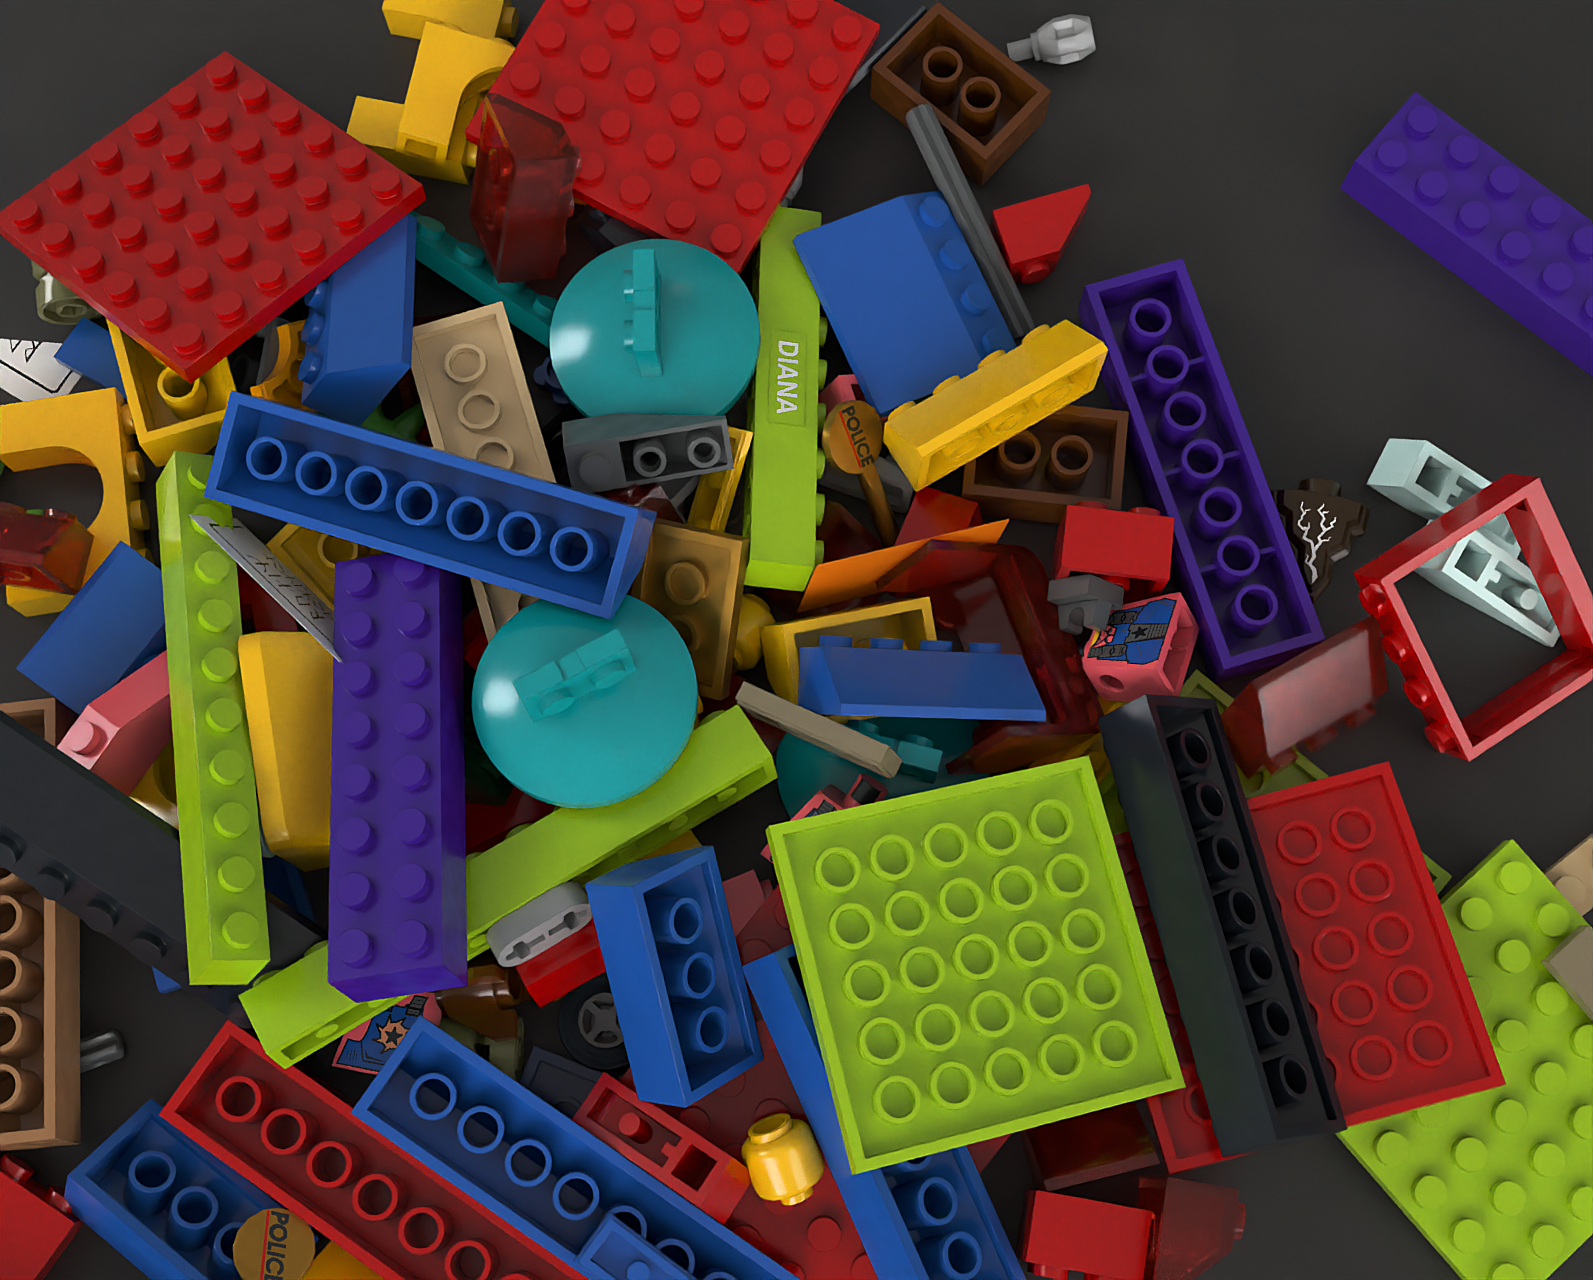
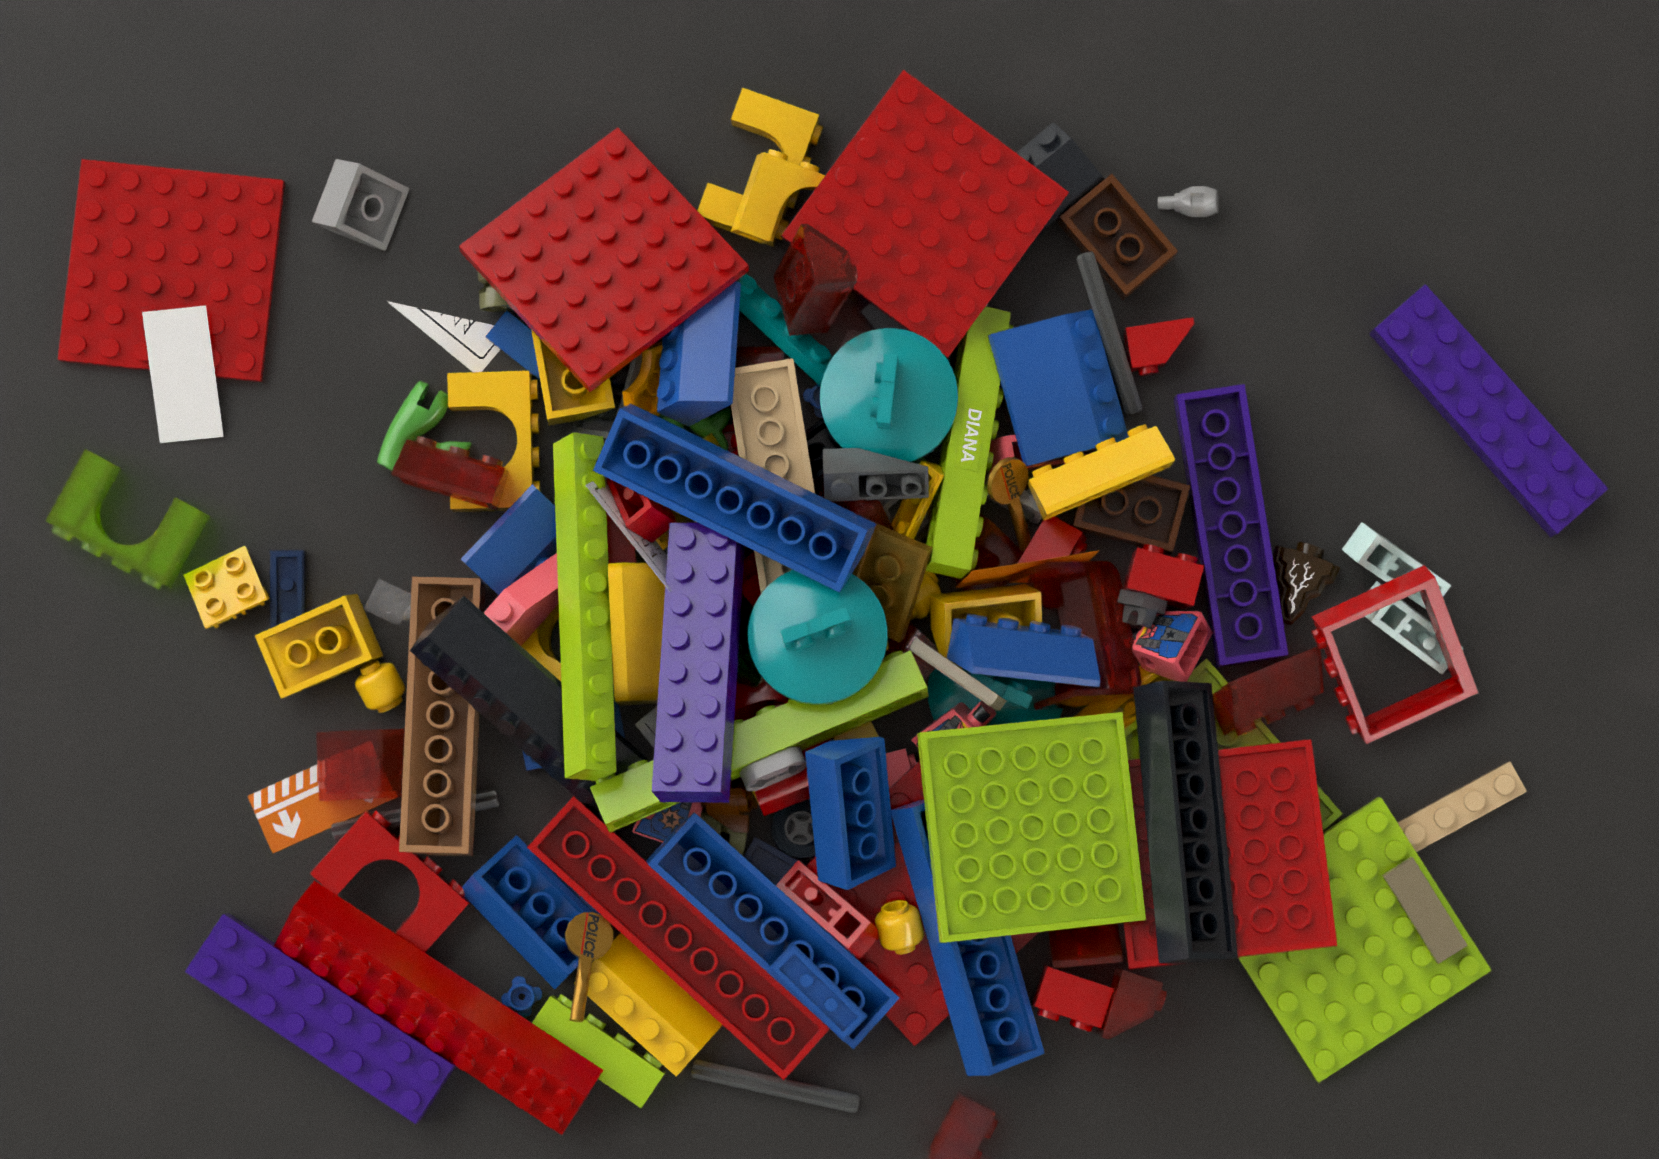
camera: 10 degrees right, 10 degrees up
(293, 554) = (641, 513): none -> red slope

